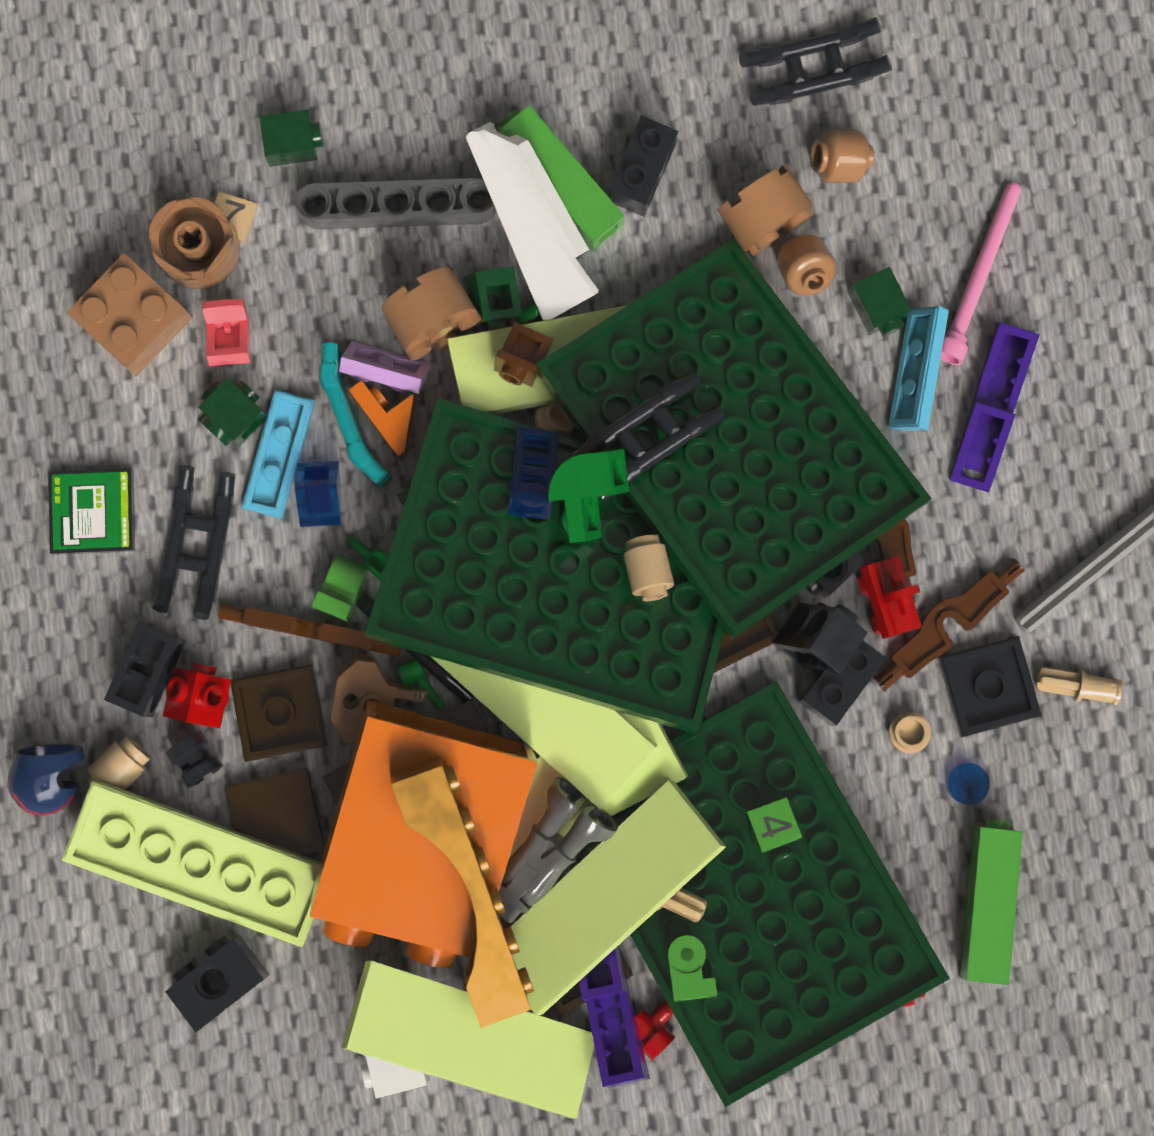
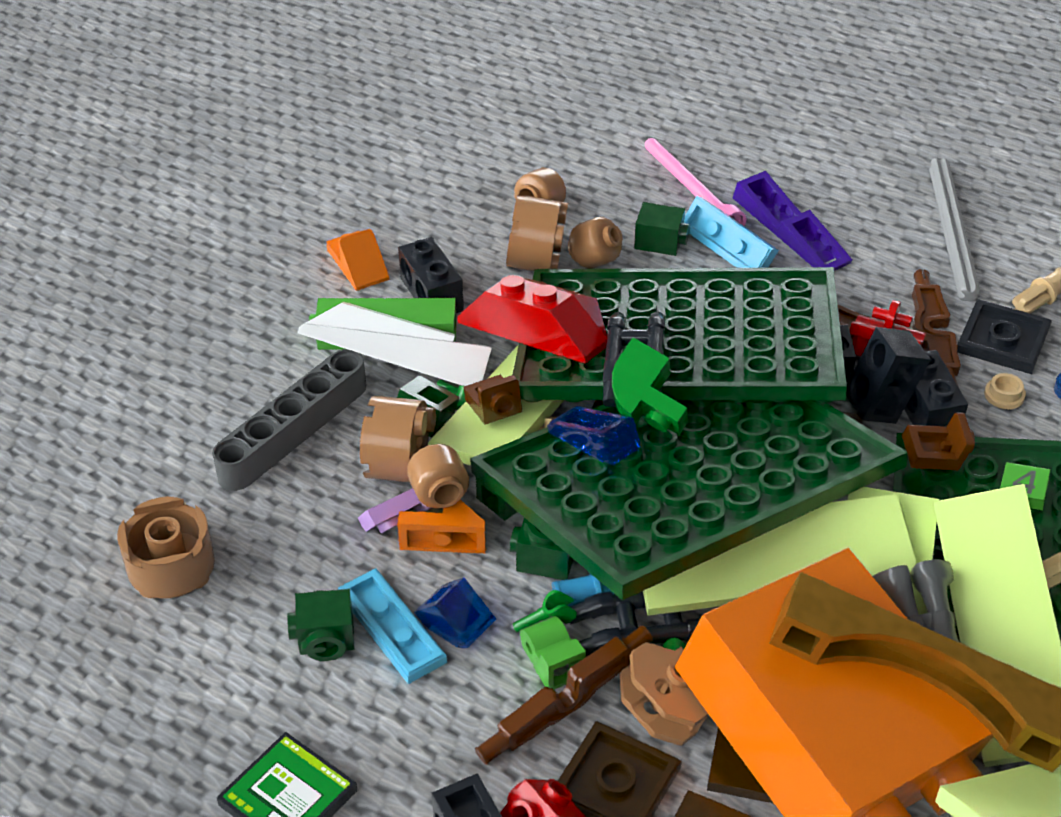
camera: 45 degrees left, 40 degrees down
(129, 314) = (164, 634): medium nougat brick -> none
(182, 520) = (400, 707): black piece -> none
(227, 332) = (255, 584): coral bracket -> none
(290, 137) = (165, 446): dark green brick -> none
(357, 450) = (437, 542): teal piece -> none
(400, 389) = (438, 476): none -> medium nougat head
(625, 75) = (359, 258): none -> orange slope
(643, 317) = (540, 317): none -> red wedge
(648, 567) = (741, 405): tan brick -> none
(766, 732) = (939, 446): none -> reddish brown bracket
(829, 44) = (462, 163): black piece -> none

